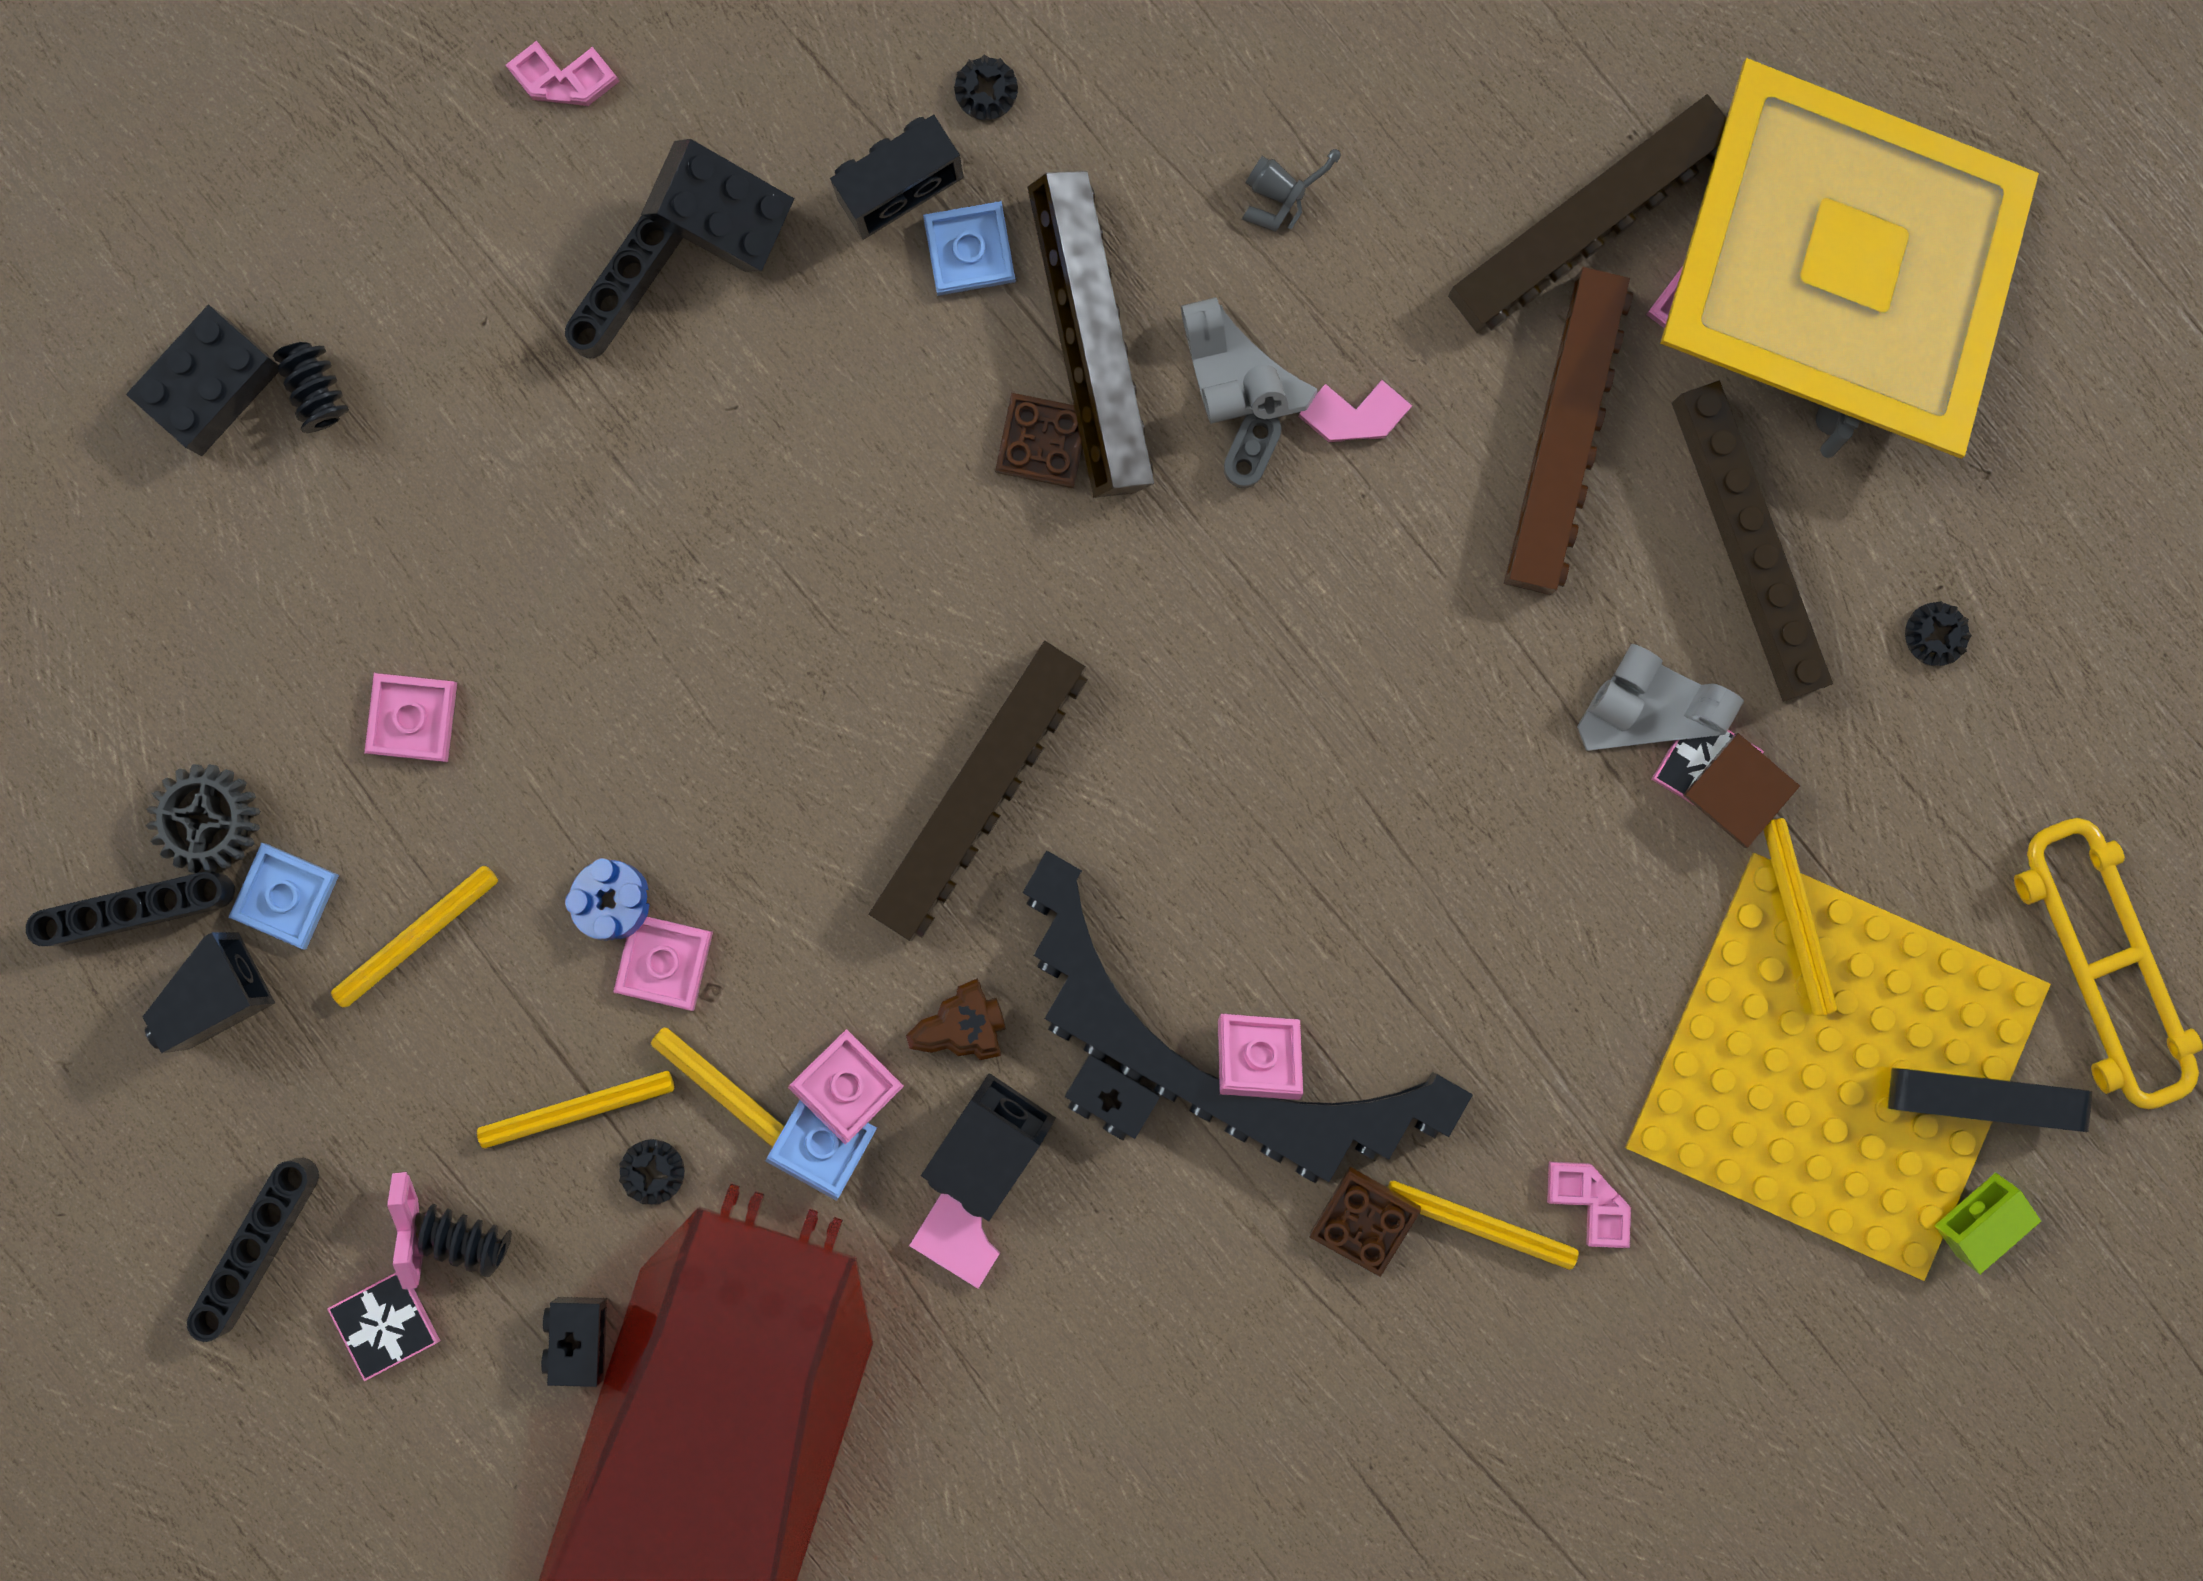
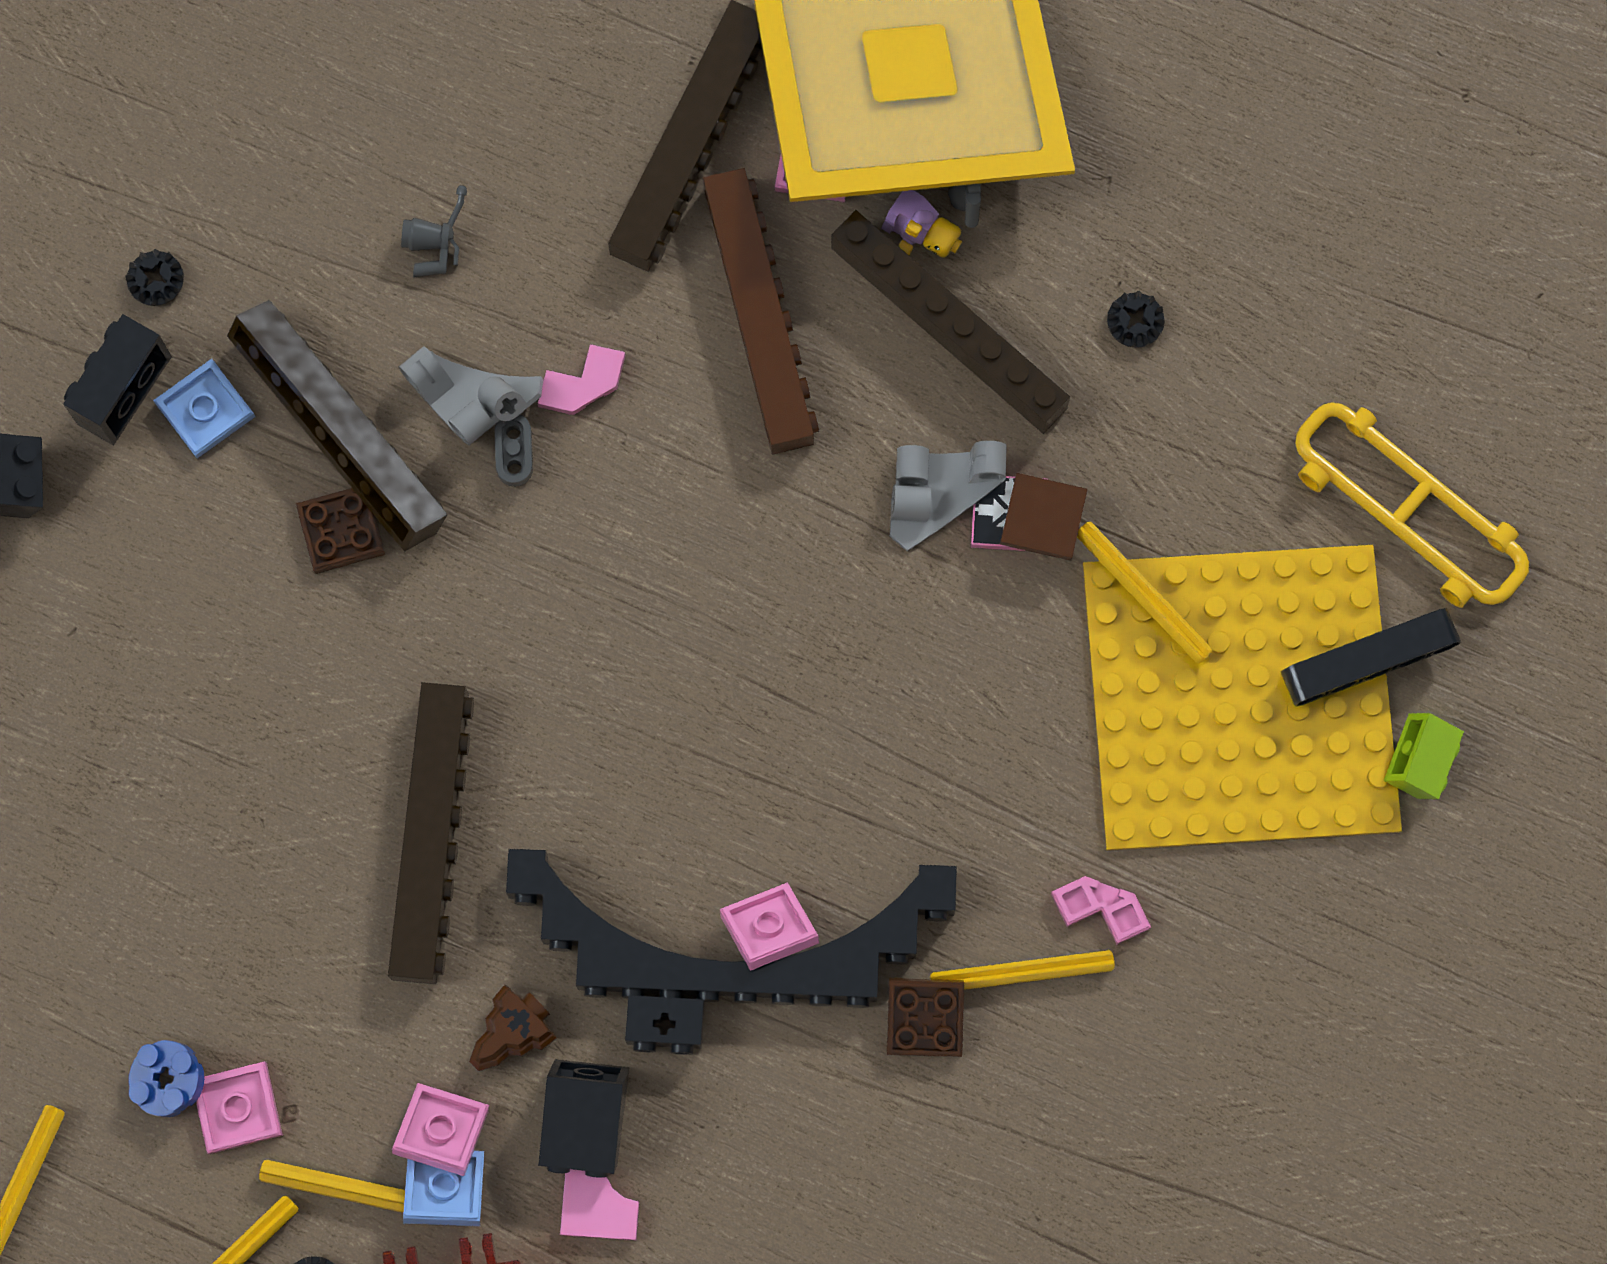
camera: 25 degrees left, 10 degrees down
(1774, 423) = (919, 223): none -> piece

